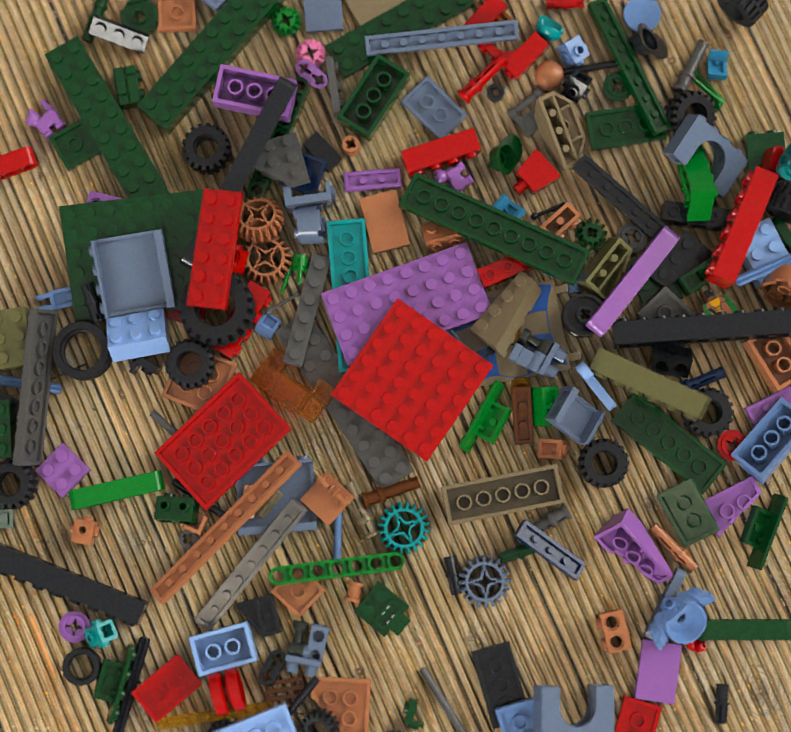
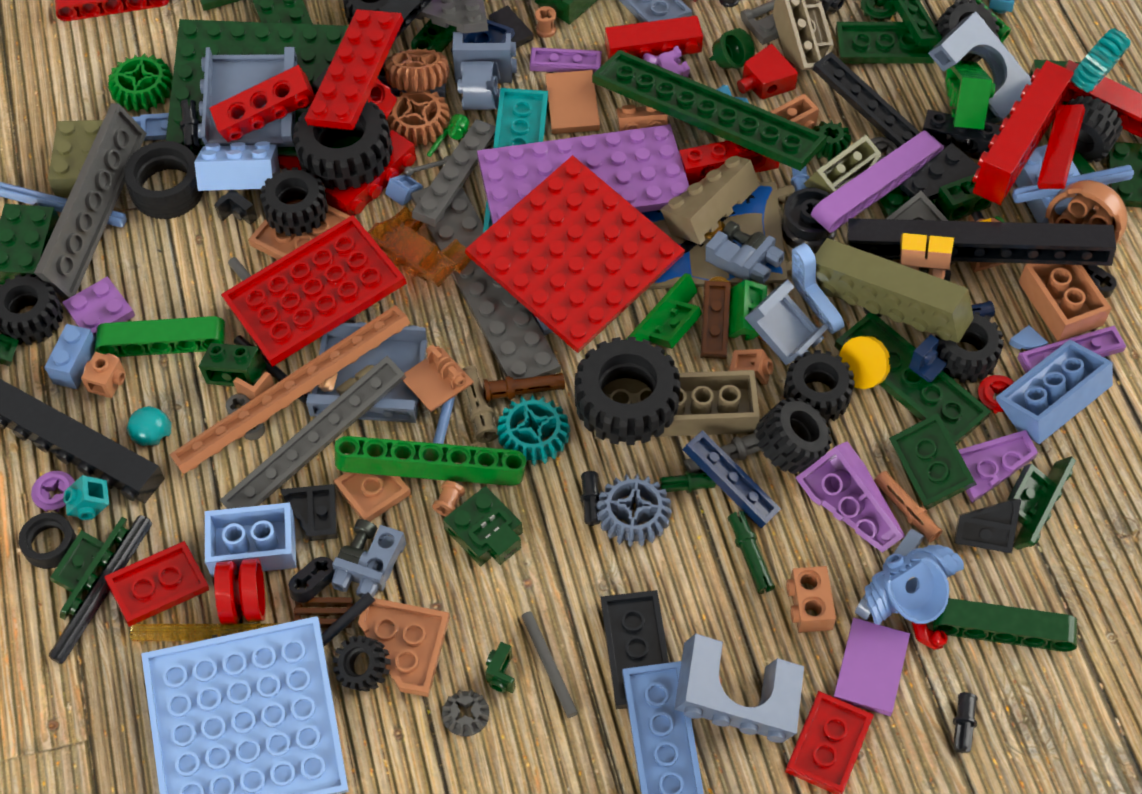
camera: 10 degrees right, 25 degrees down
(36, 241) = (140, 82): none -> green gear
(56, 518) = (70, 356): none -> medium blue brick
(121, 299) = (250, 102): none -> red brick
(128, 564) = (148, 426): none -> teal hair
(489, 486) = (634, 361): none -> black tyre
(569, 600) = (747, 543): none -> dark green pin
(601, 506) = (793, 435): none -> black tyre
(635, 439) = (867, 360): none -> yellow tile
(673, 354) = (937, 255): none -> hips
(680, 434) = (925, 359): none -> dark blue bracket
(730, 558) = (989, 526): none -> black wing
(751, 394) = (1027, 339): none -> medium blue tile
(770, 238) = (1061, 147): none -> red tile

